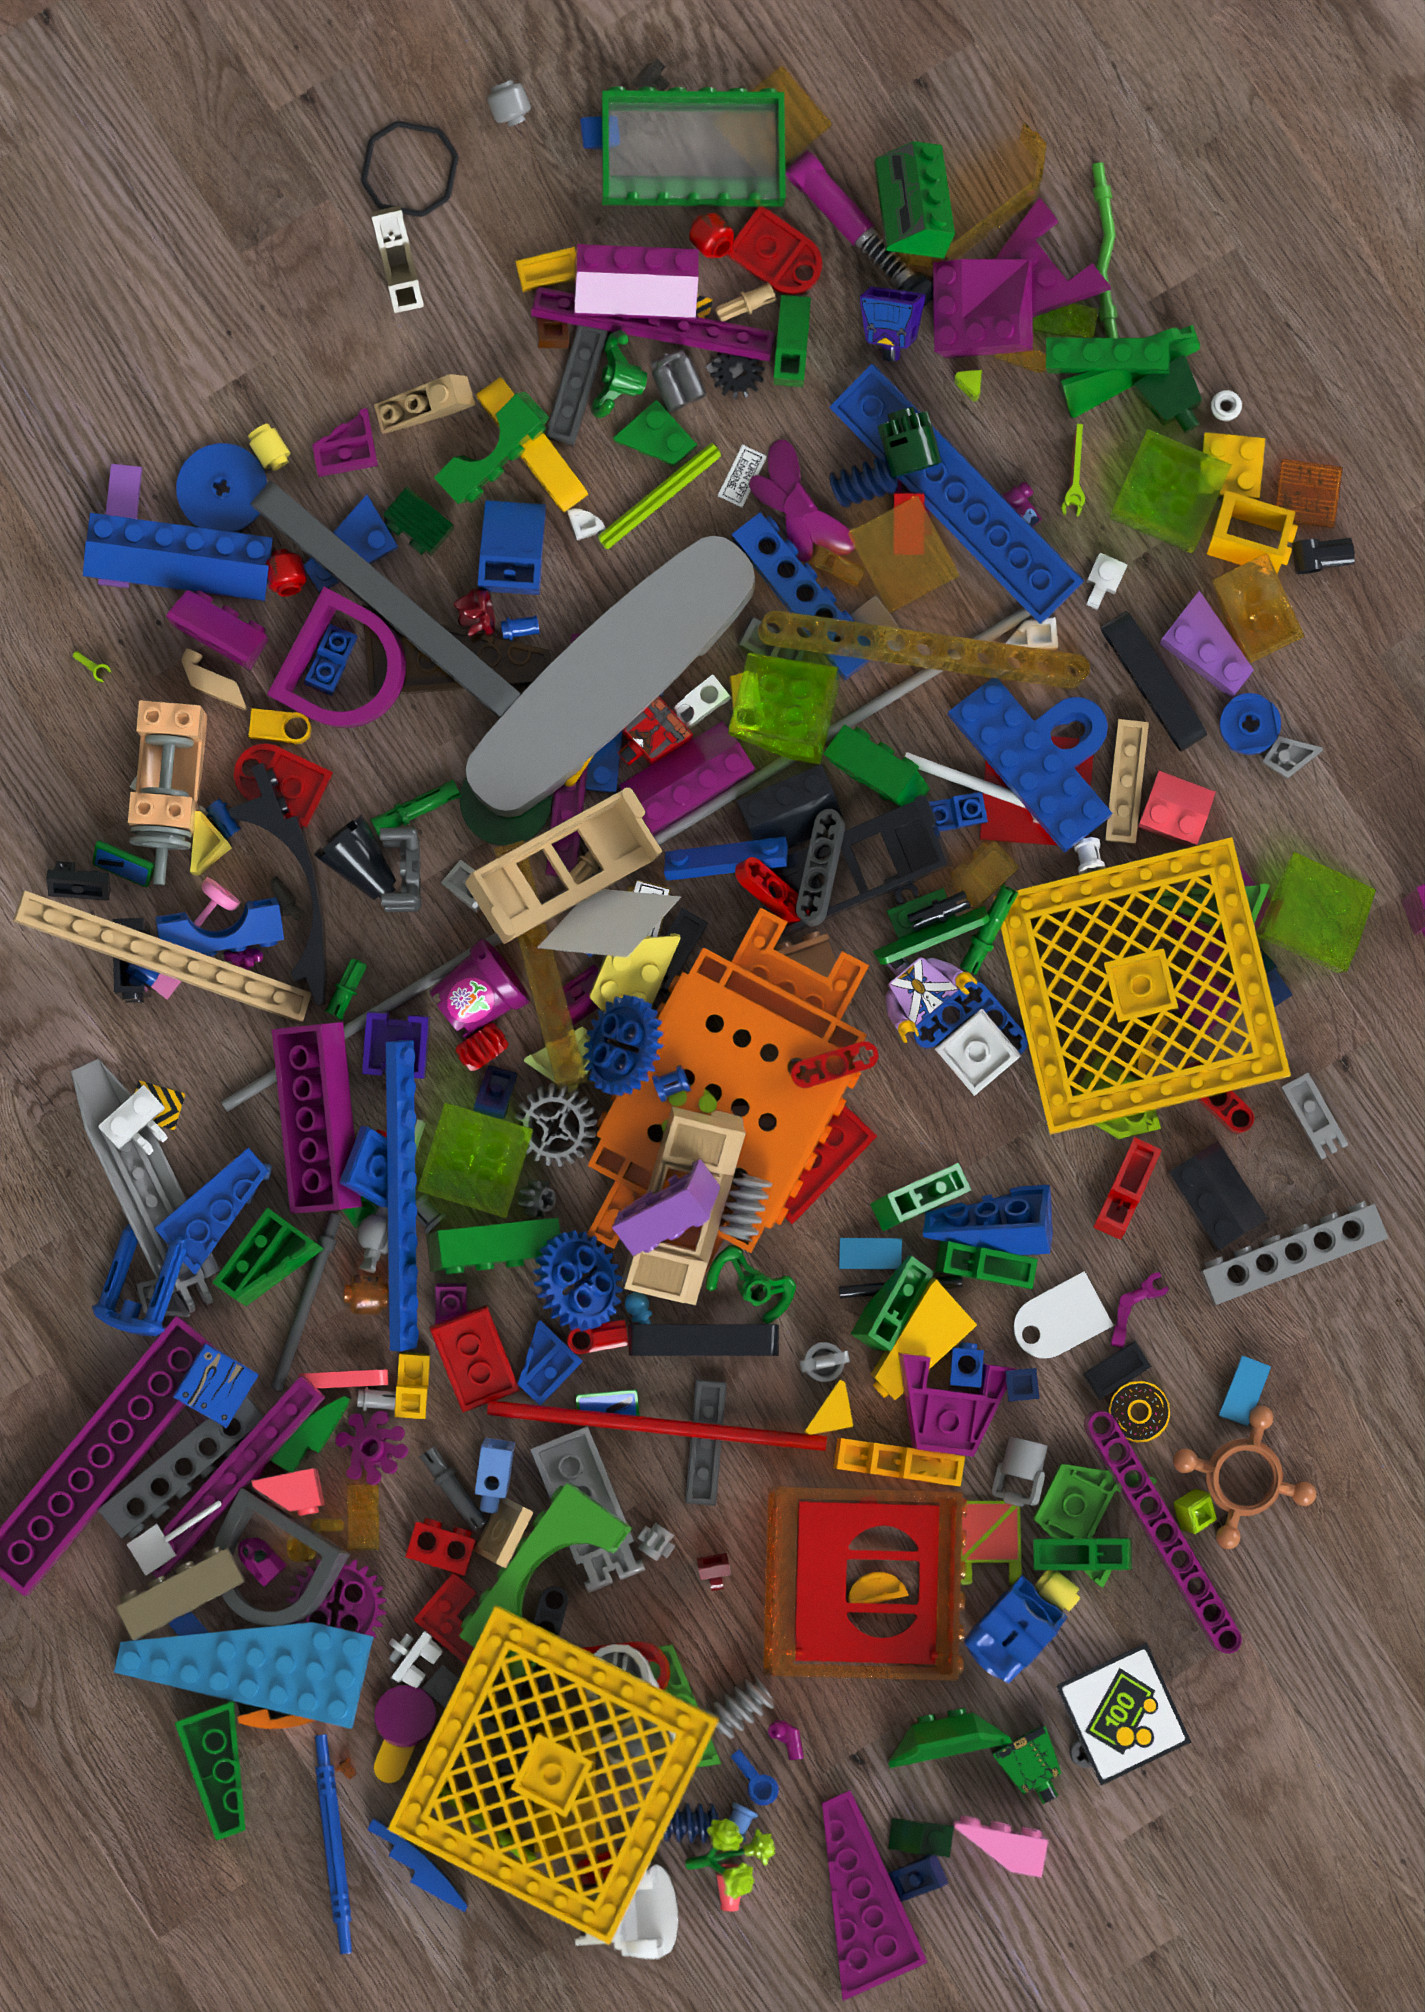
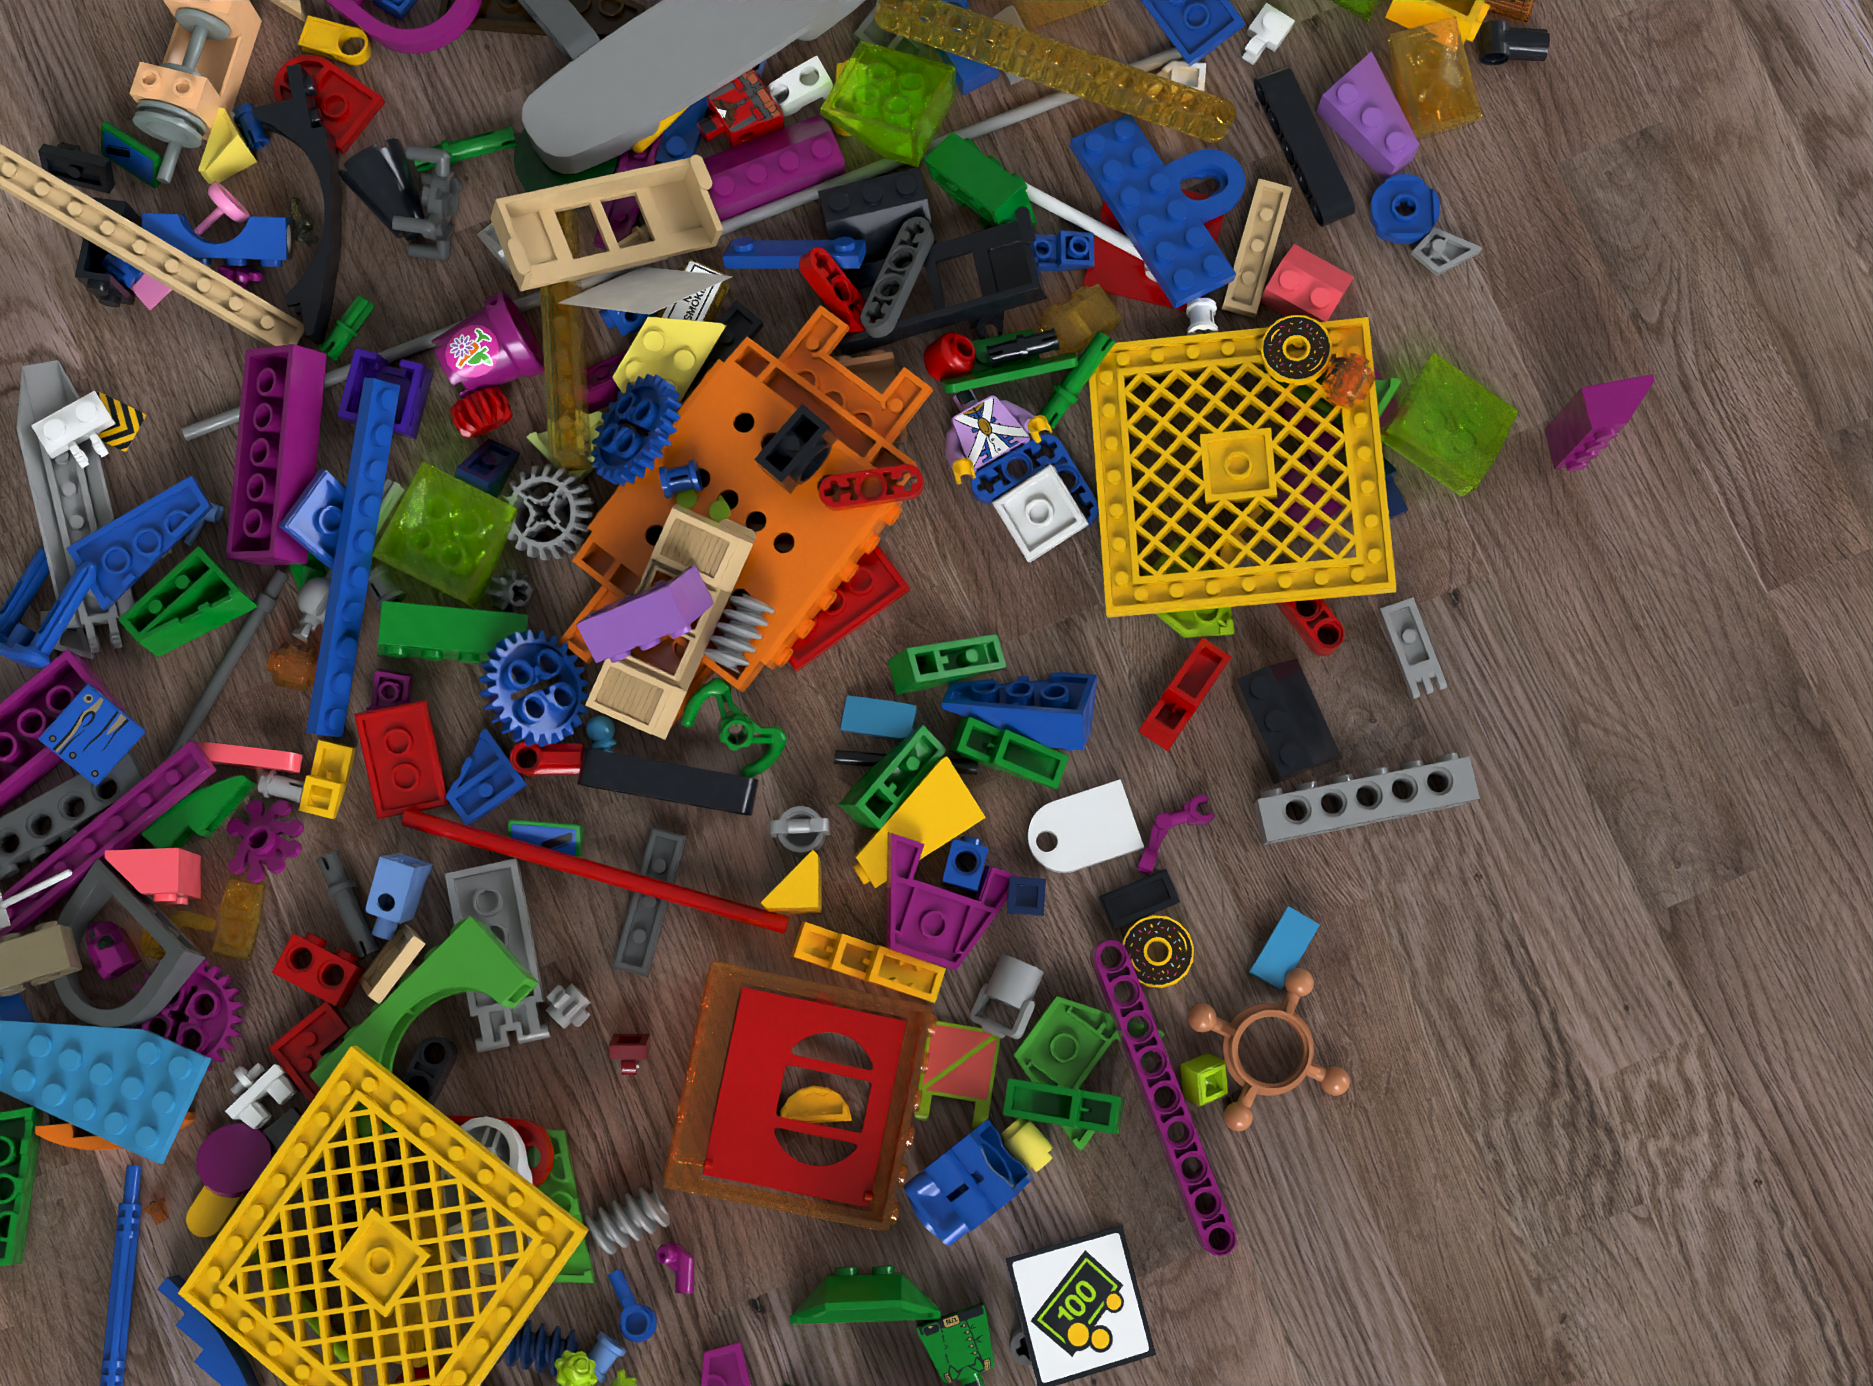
camera: 10 degrees right, 5 degrees down
(769, 1047) = (797, 449): none -> black brick
(876, 928) = (949, 356): none -> red head
(1167, 860) = (1299, 330): none -> tile
(1223, 900) = (1348, 381): none -> clear orange head

